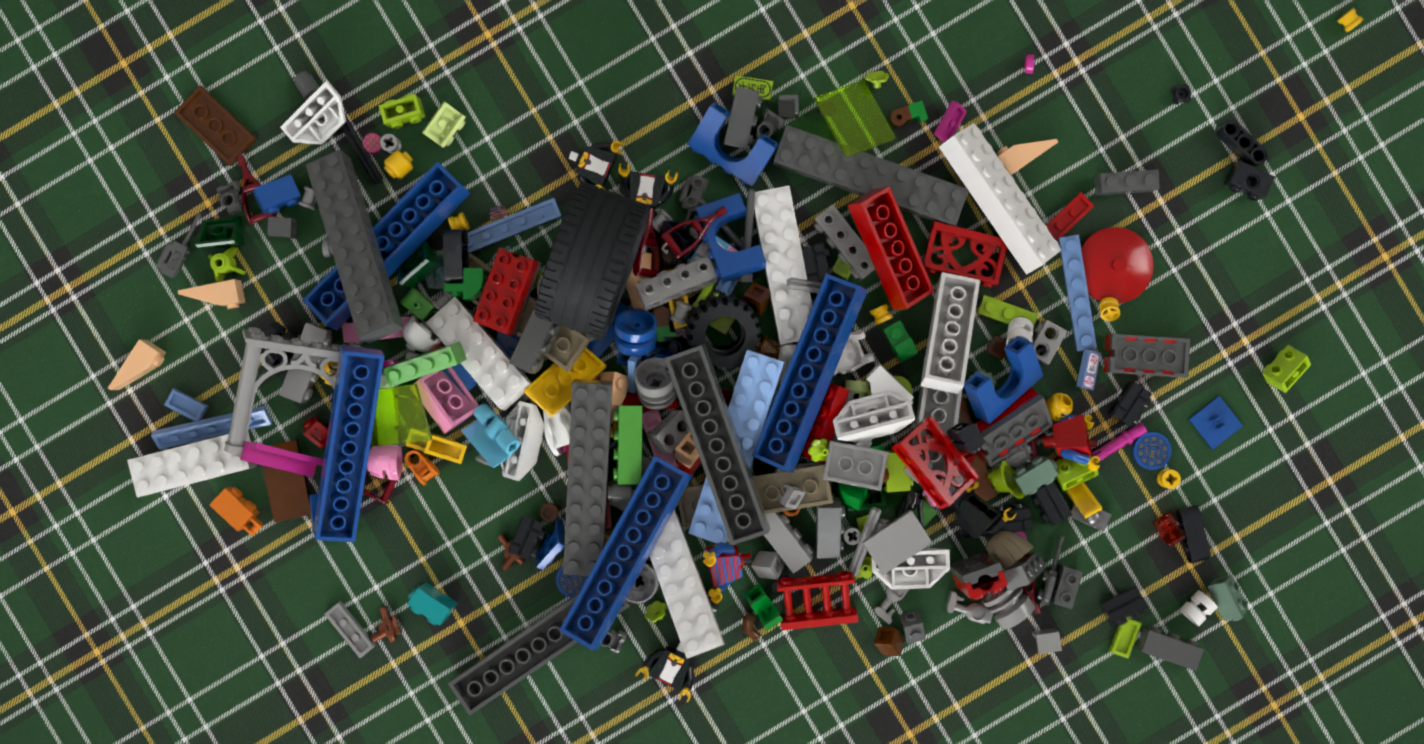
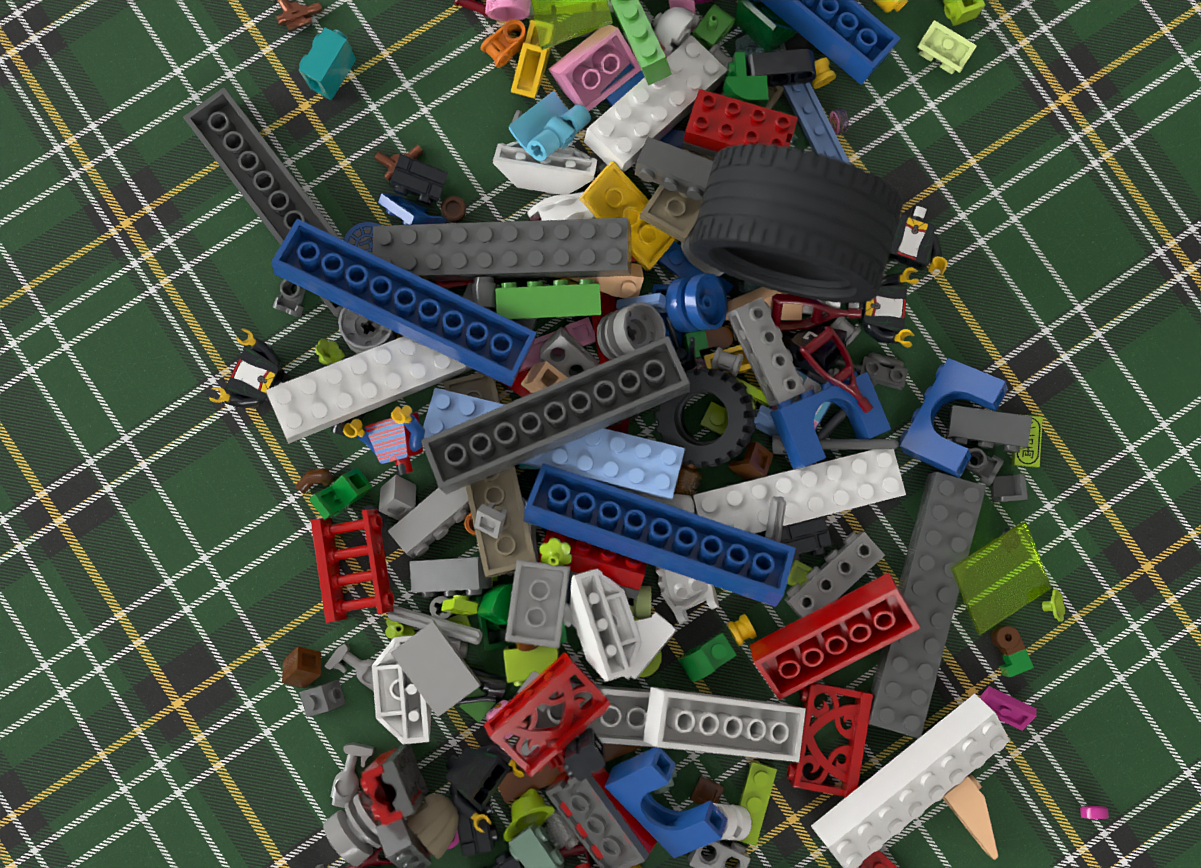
camera: 85 degrees right, 5 degrees down
(851, 522) = (460, 605): none -> lime plate

